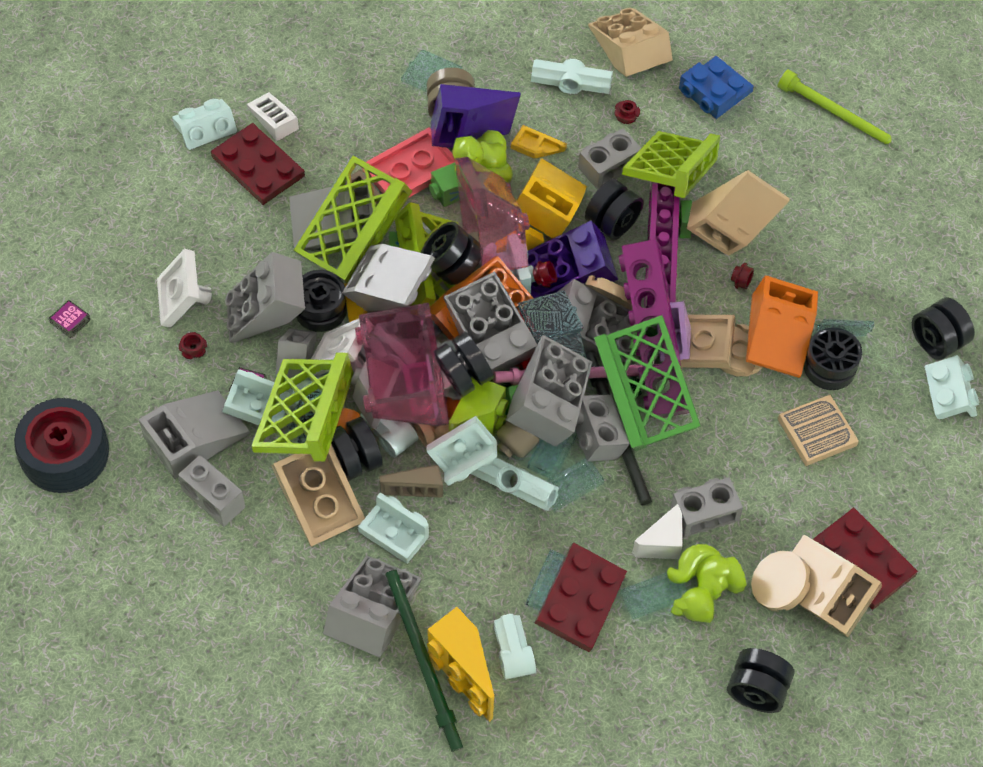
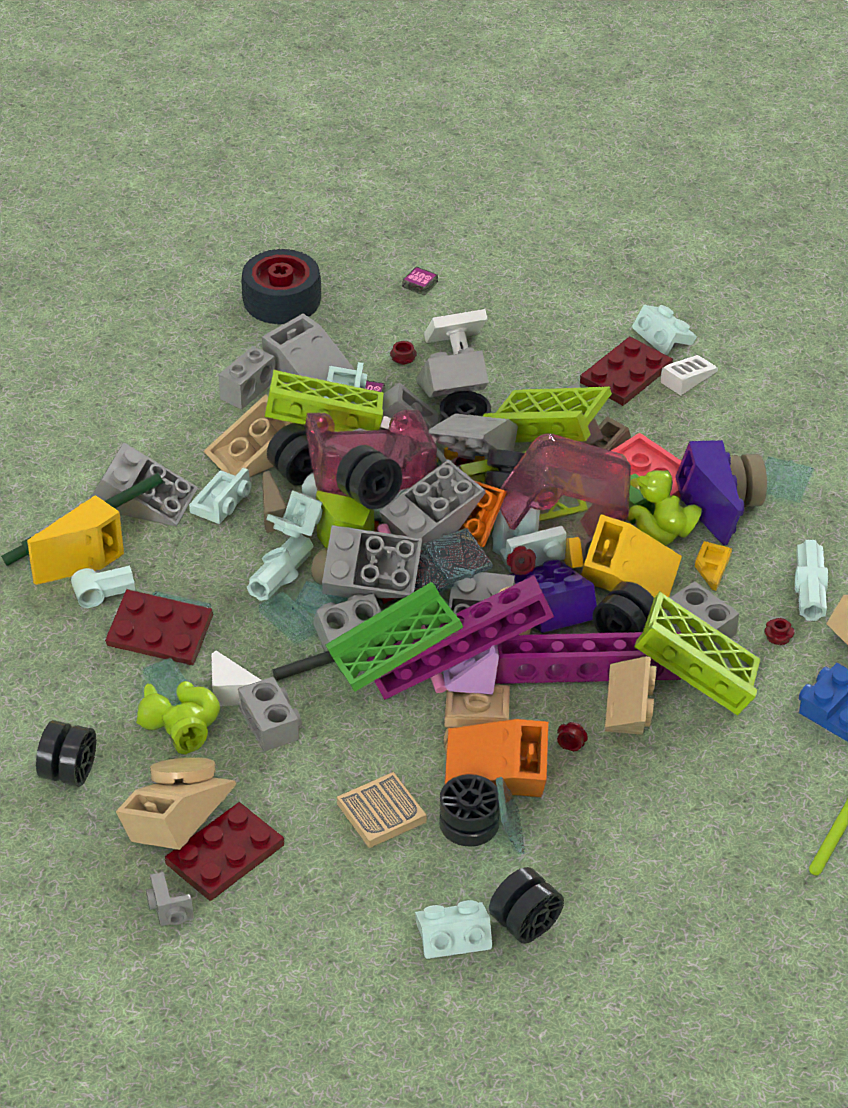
camera: 85 degrees right, 15 degrees down
(930, 608) = (169, 910): none -> light grey bracket

